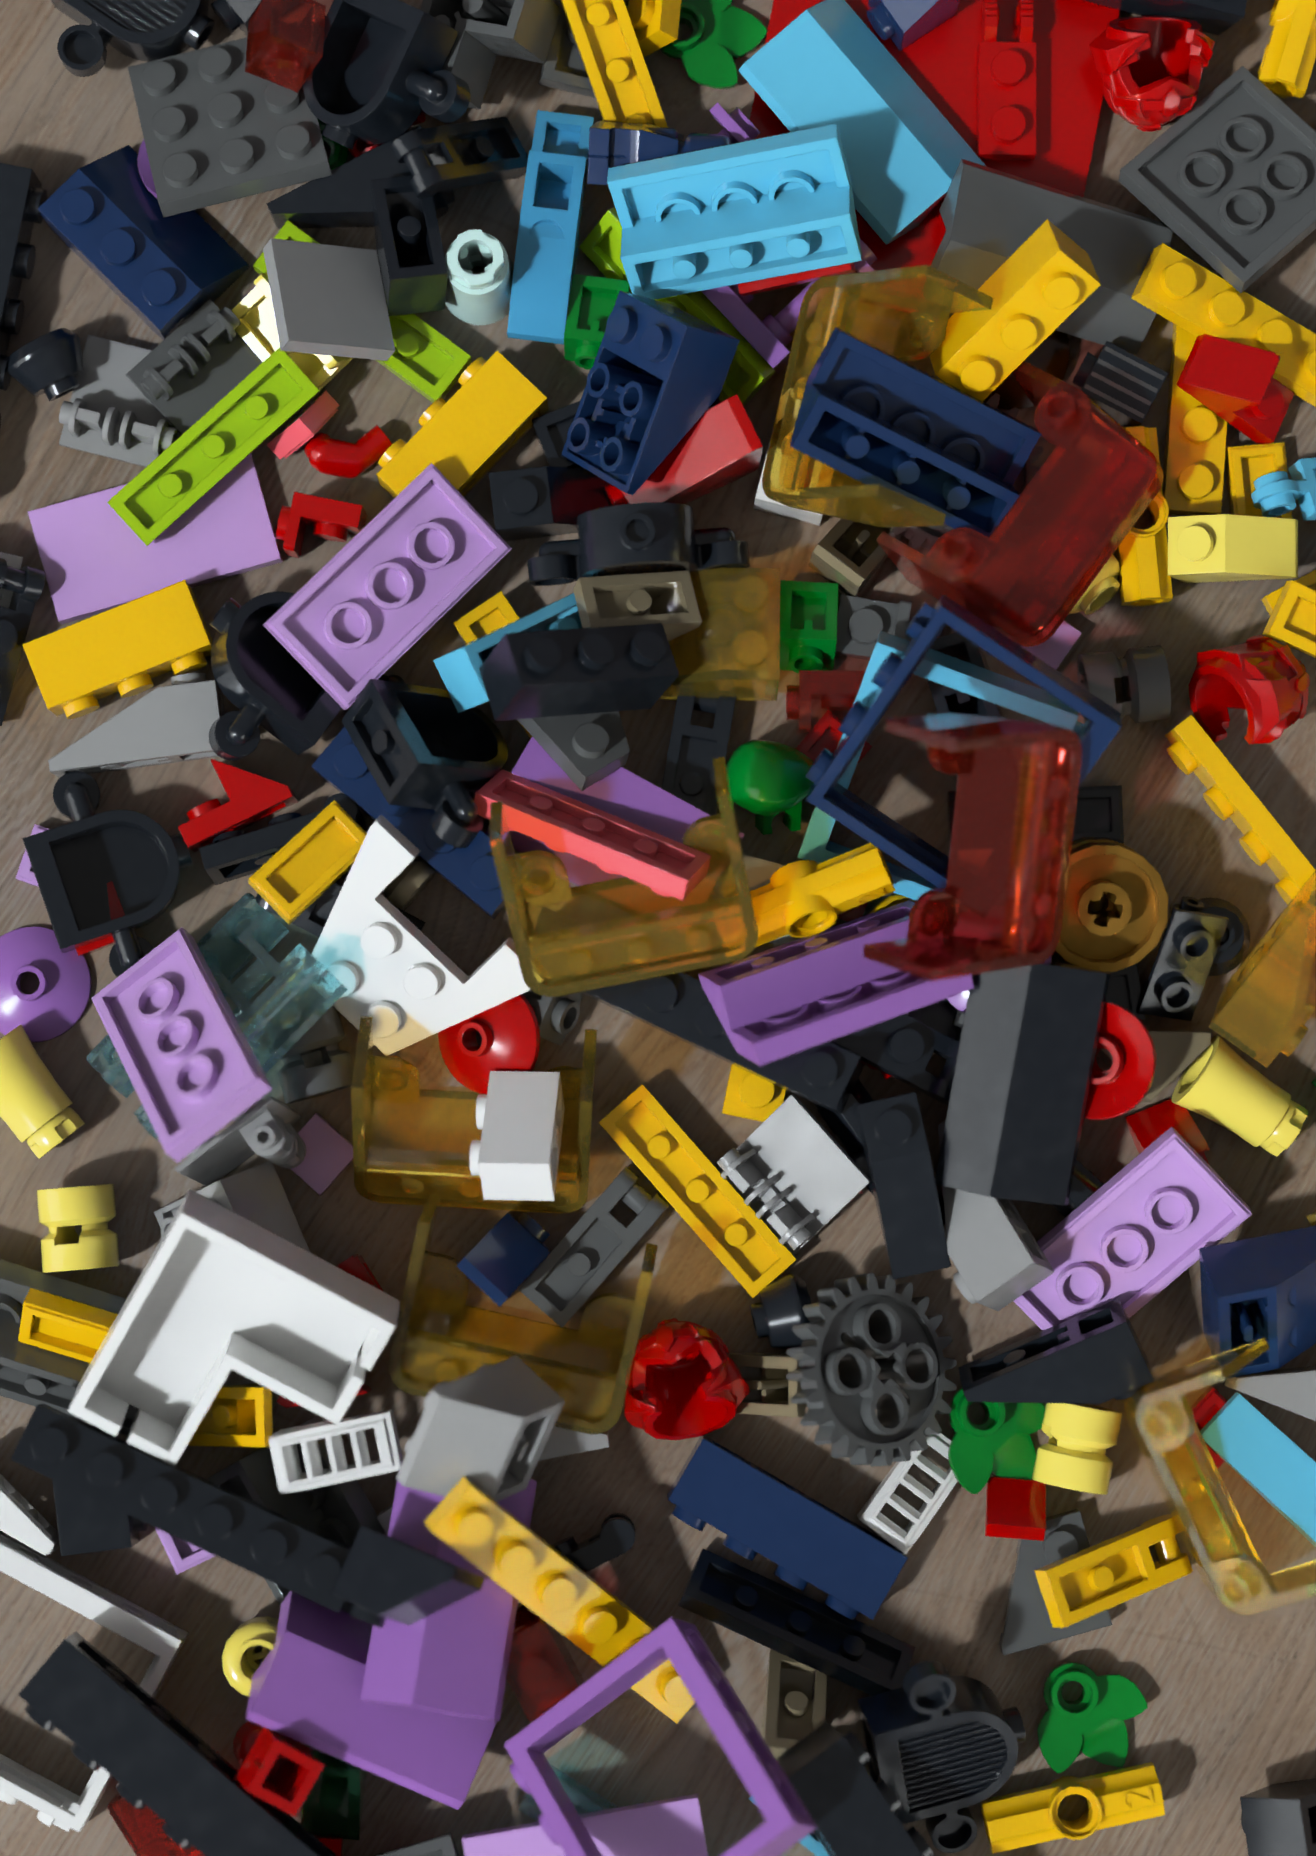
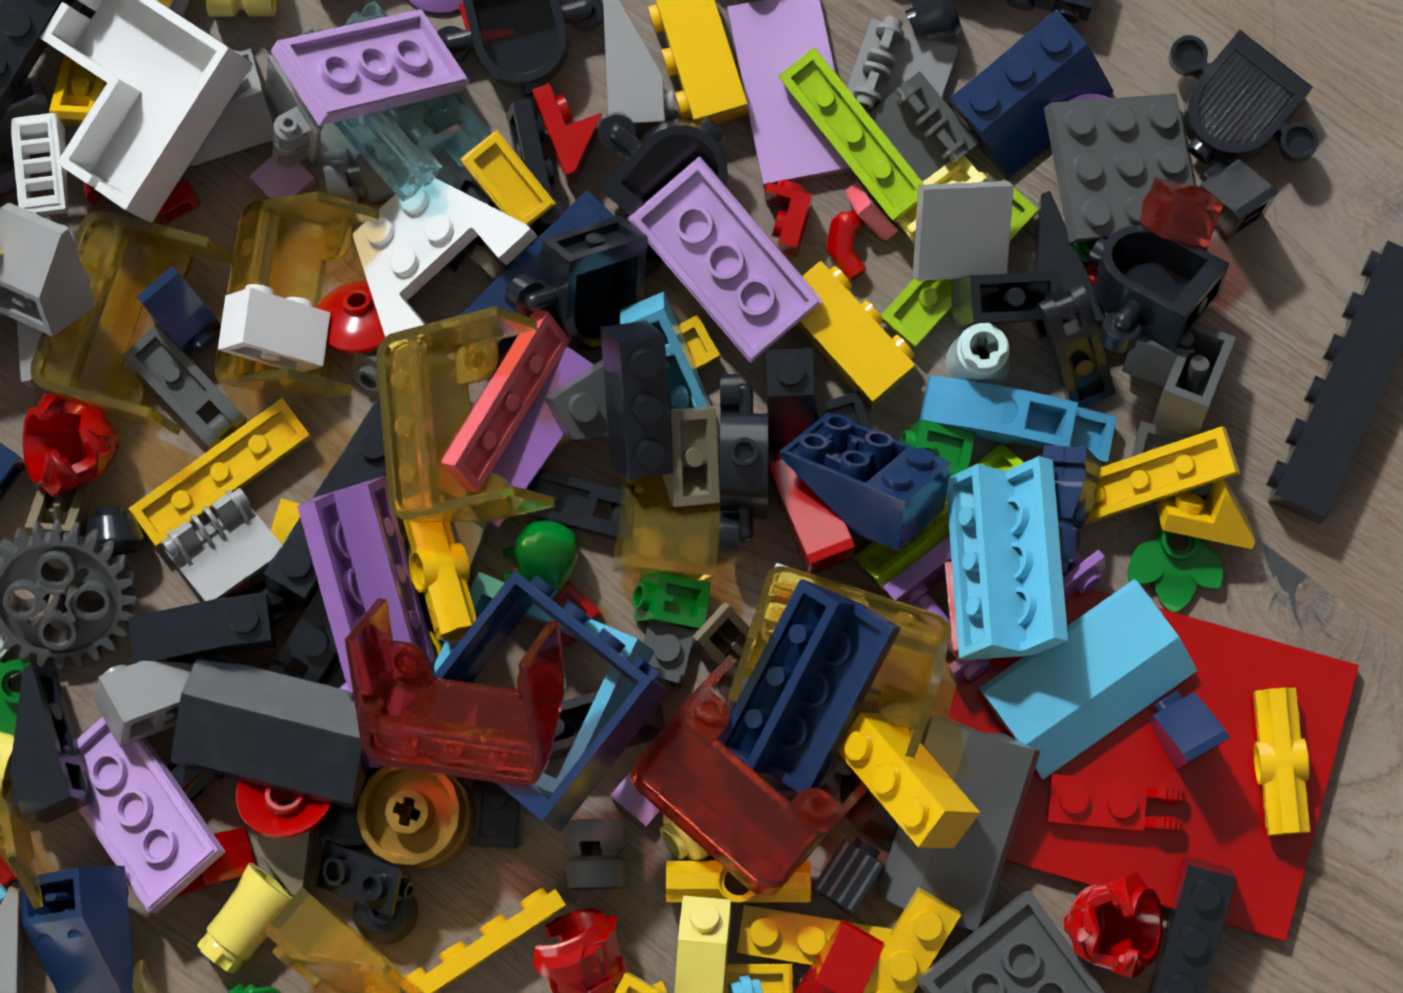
camera: 105 degrees right, 5 degrees down
(834, 689) = (620, 609): clear red bracket -> none

